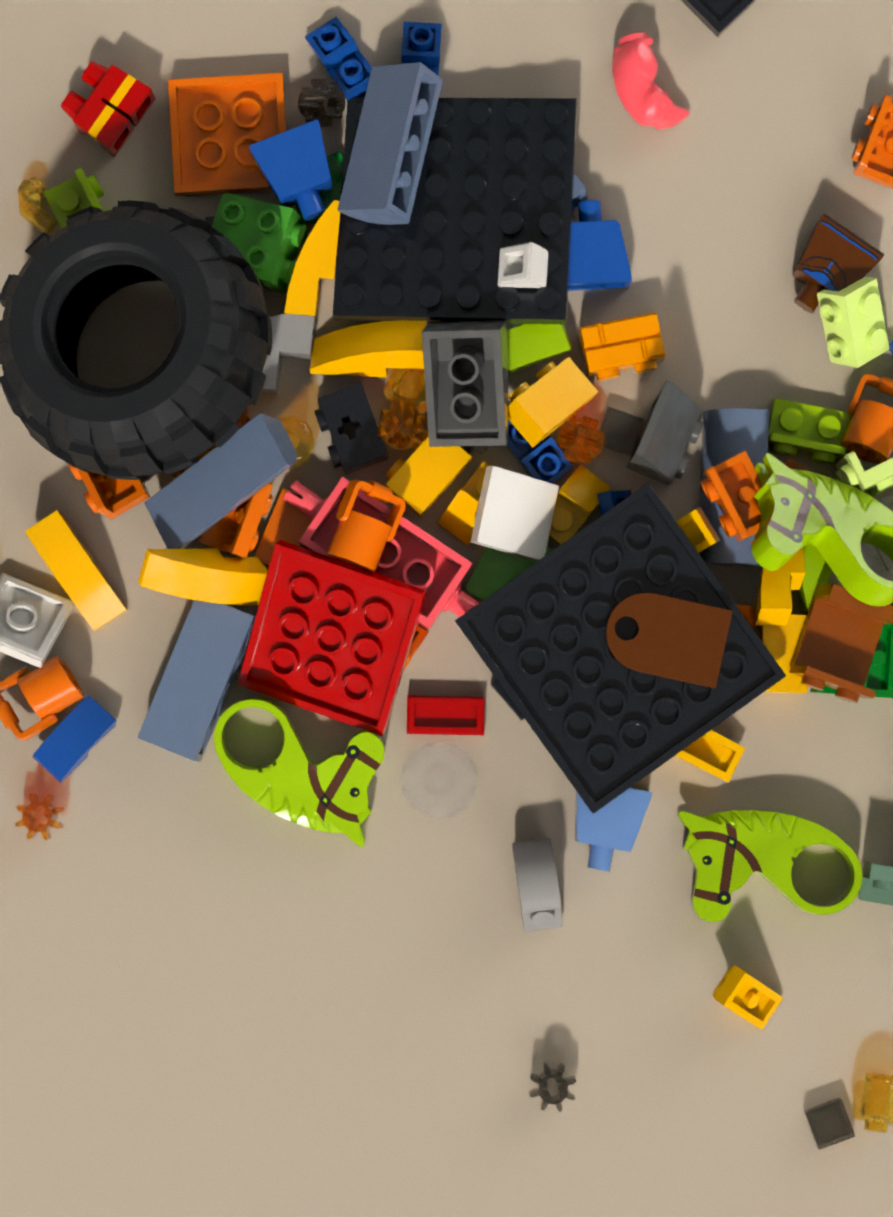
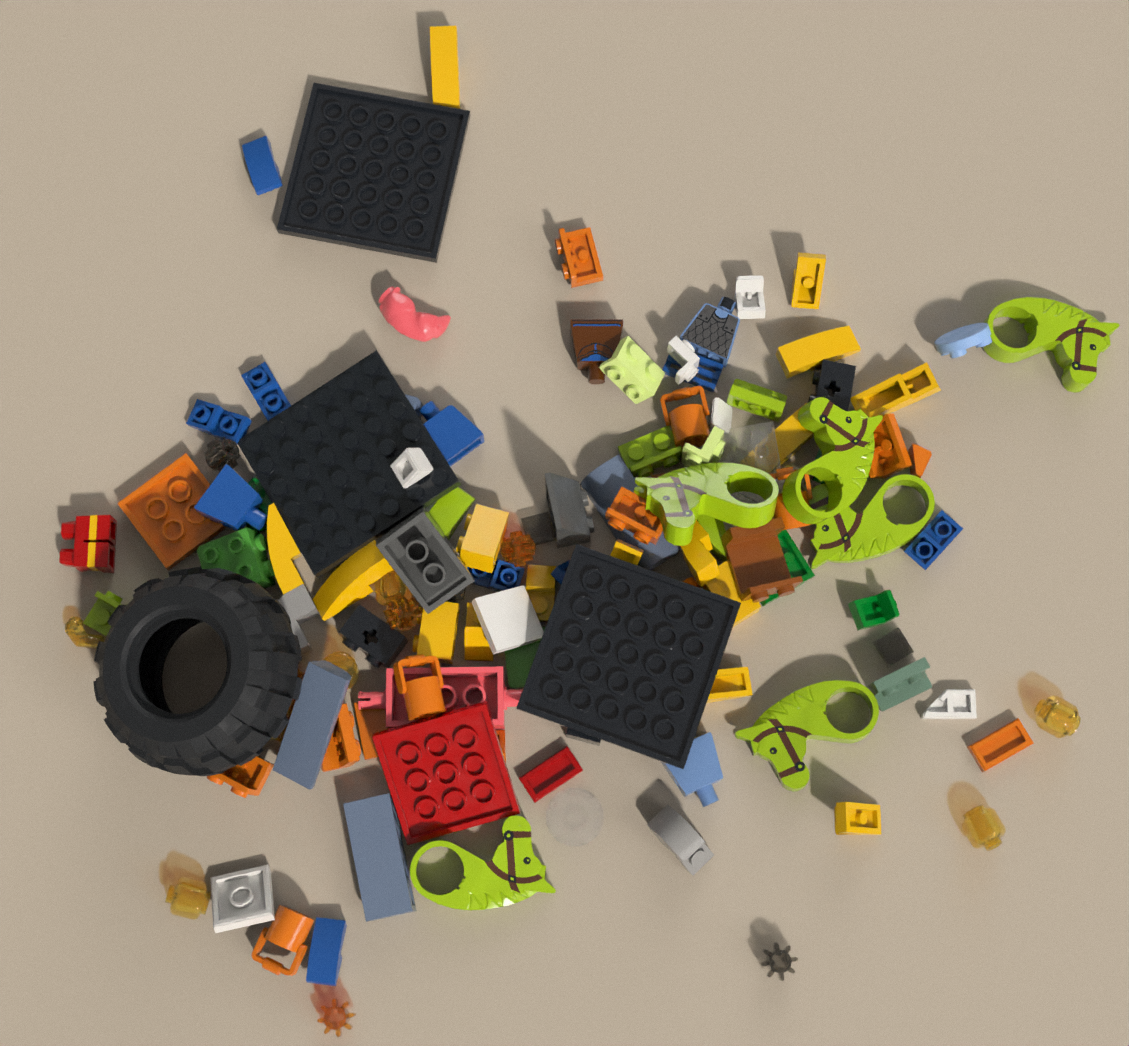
camera: 30 degrees left, 10 degrees down
(75, 570) = (256, 843): yellow slope -> none
(204, 576) = (340, 789): yellow slope -> none
(390, 144) = (281, 449): sand blue brick -> none
(621, 346) = (504, 477): light orange brick -> none
(672, 638) = (657, 627): reddish brown tile -> none
(829, 1123) = (963, 863): clear smoke tile -> none

